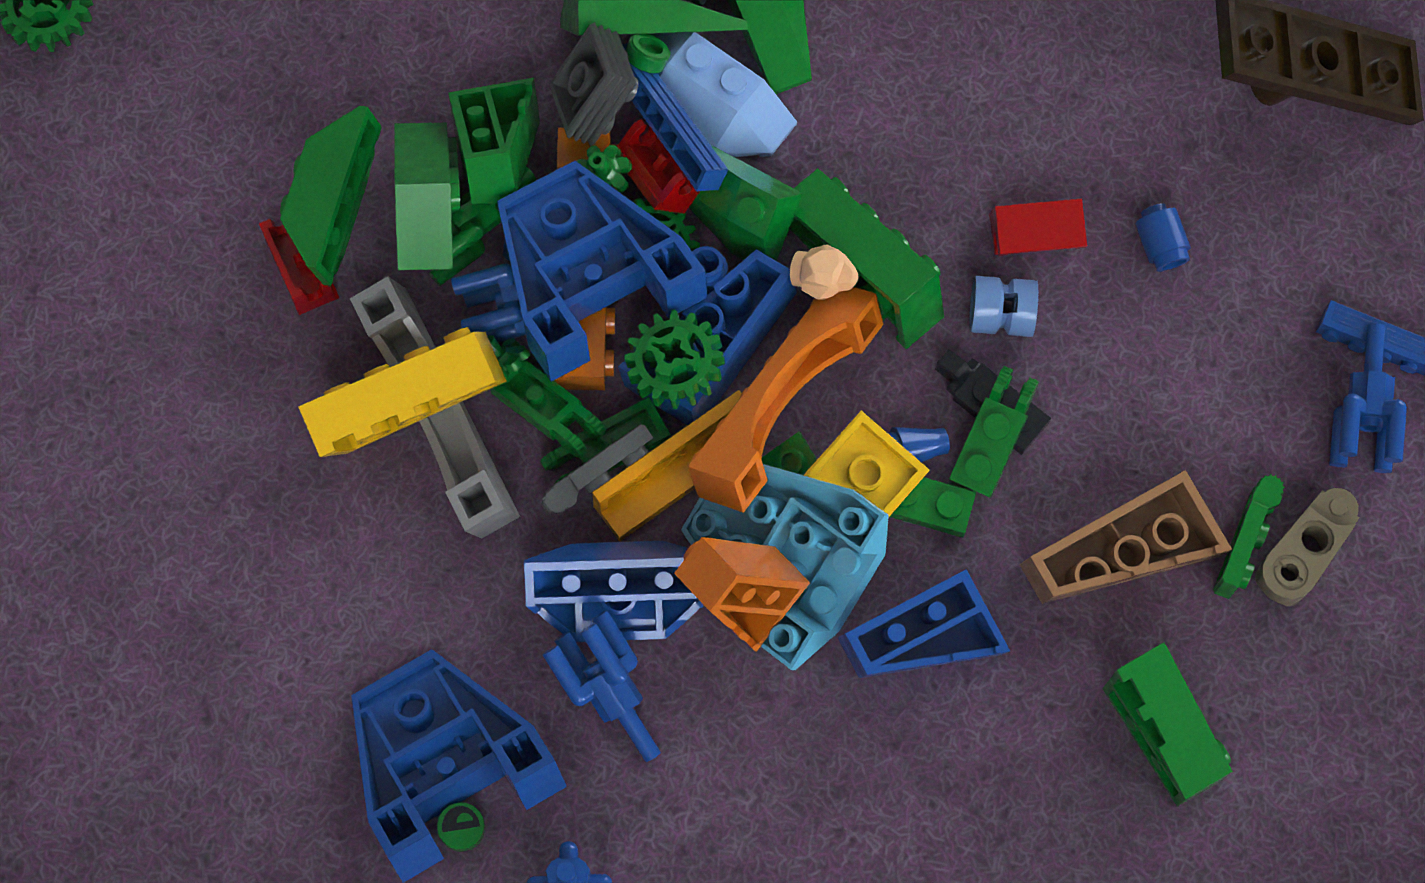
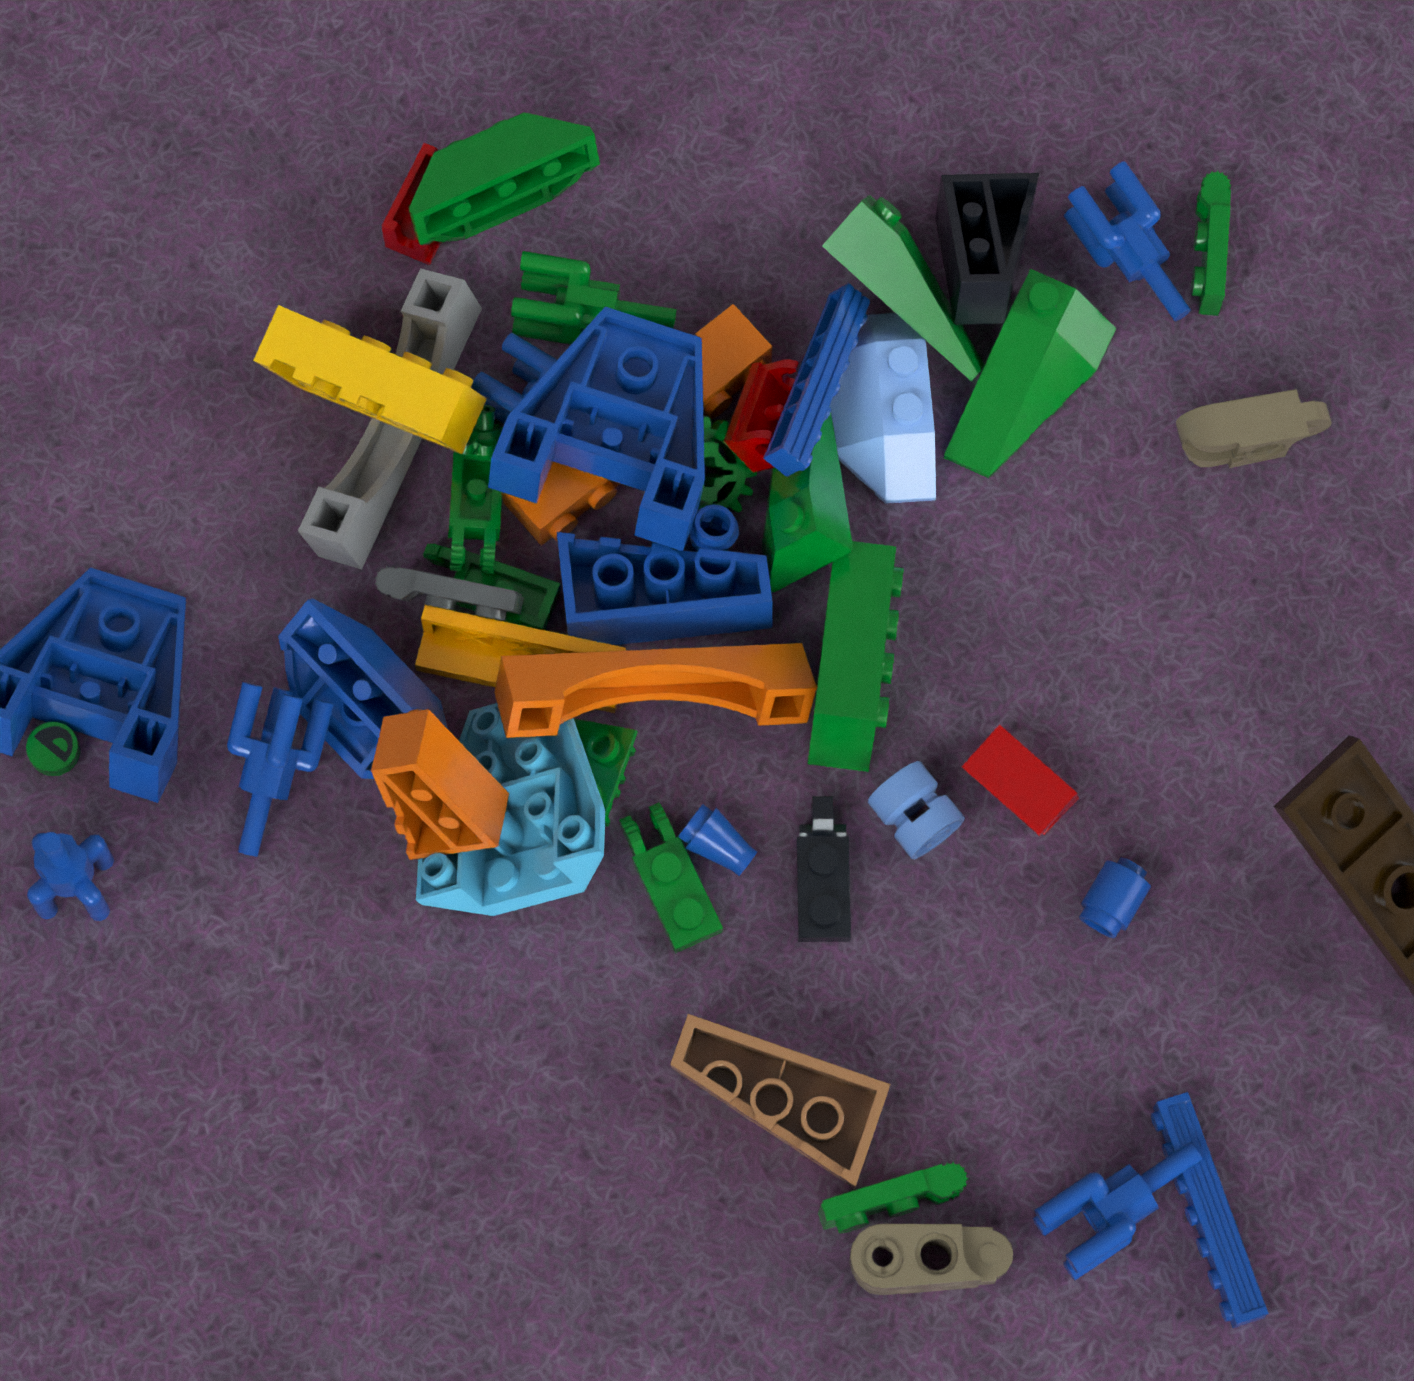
camera: 50 degrees right, 0 degrees up
(425, 194) = (558, 240): green wedge -> none
(495, 136) = (673, 259): green wedge -> none
(593, 85) = (789, 296): dark grey brick -> none
(608, 166) = (727, 370): green plant -> none
(647, 53) = (864, 316): green tile -> none
(683, 376) = (576, 580): green gear -> none
(822, 272) = (791, 625): light nougat rock -> none
(870, 464) = (648, 815): yellow tile -> none
(926, 631) = (550, 983): blue wedge -> none
(993, 437) = (785, 899): green hinge -> none
(1168, 724) = (649, 1263): green wedge -> none

